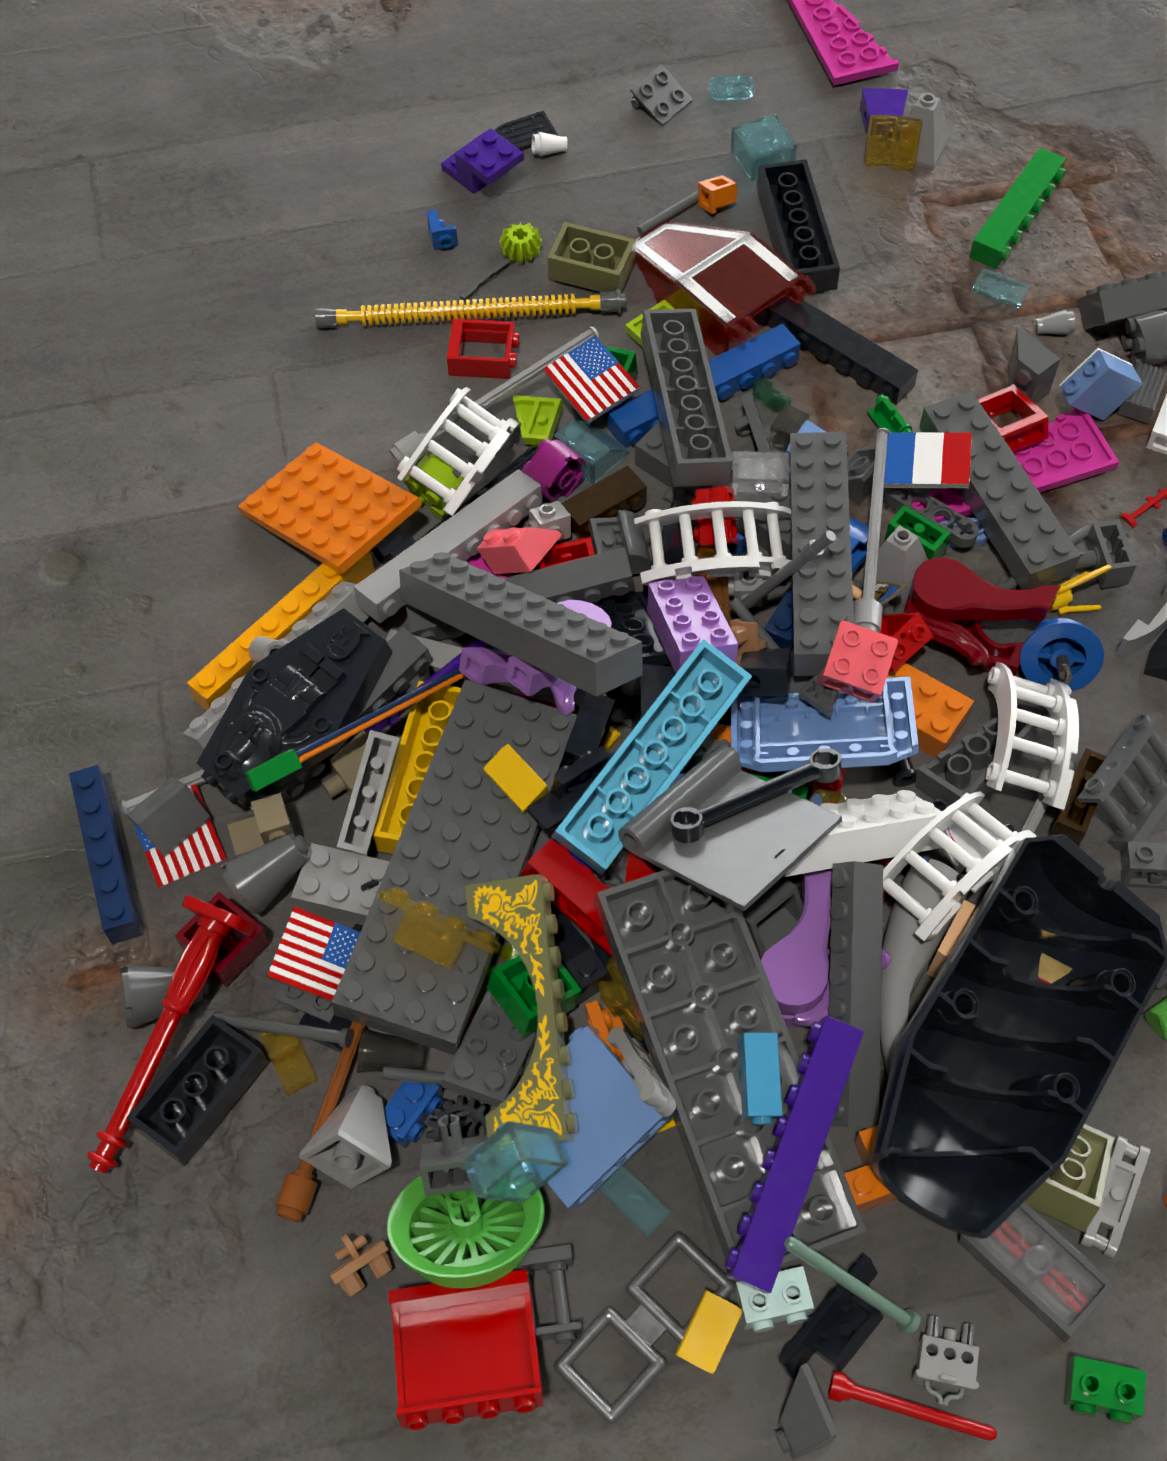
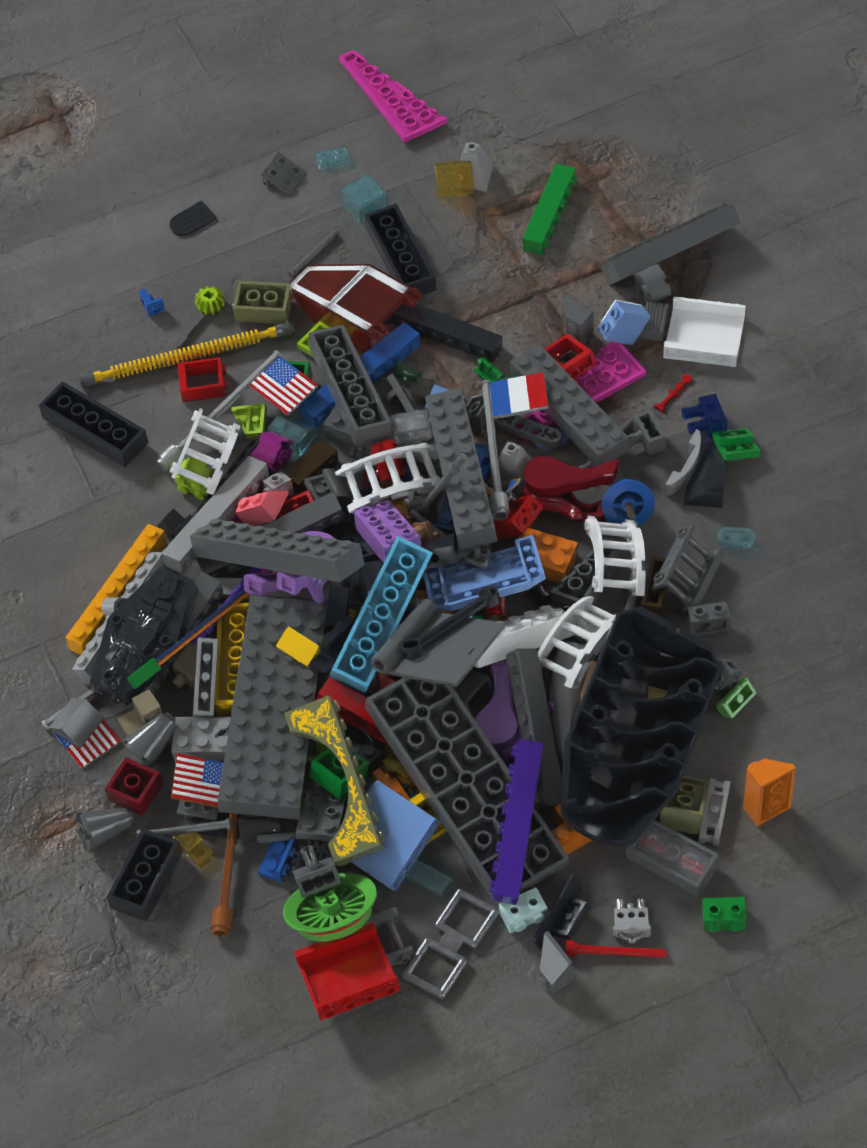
camera: 10 degrees left, 5 degrees down
(105, 855) = (42, 753): dark blue brick -> none
(183, 989) = (130, 773): red piece -> none
(317, 380) = (93, 424): none -> black brick
(329, 507) = (126, 506): orange plate -> none
(347, 1273) = (265, 955): medium nougat hips -> none
(352, 1140) = (248, 881): light grey slope -> none
(432, 933) = (269, 747): clear yellow bracket -> none
(482, 161) = (168, 247): dark purple bracket -> none
(514, 1162) = (352, 860): clear light blue brick -> none
(547, 144) = (210, 225): white cone -> none
(647, 1078) = (416, 798): light grey plate -> none
(709, 1332) = (488, 936): yellow slope -> none
(716, 193) = (338, 238): orange brick -> none
(759, 1077) = (487, 783): dark azure brick -> none
(858, 662) = (497, 531): coral bracket -> none
(882, 102) = (441, 151): dark purple torso -> none
(907, 1320) = (604, 905): sand green bar -> none
(932, 536) = (532, 445): green brick -> none
(1001, 287) = (548, 267): clear light blue plate -> none
(1056, 323) = (589, 285): light grey cone -> none
(1065, 595) = (624, 465): yellow plant -> none

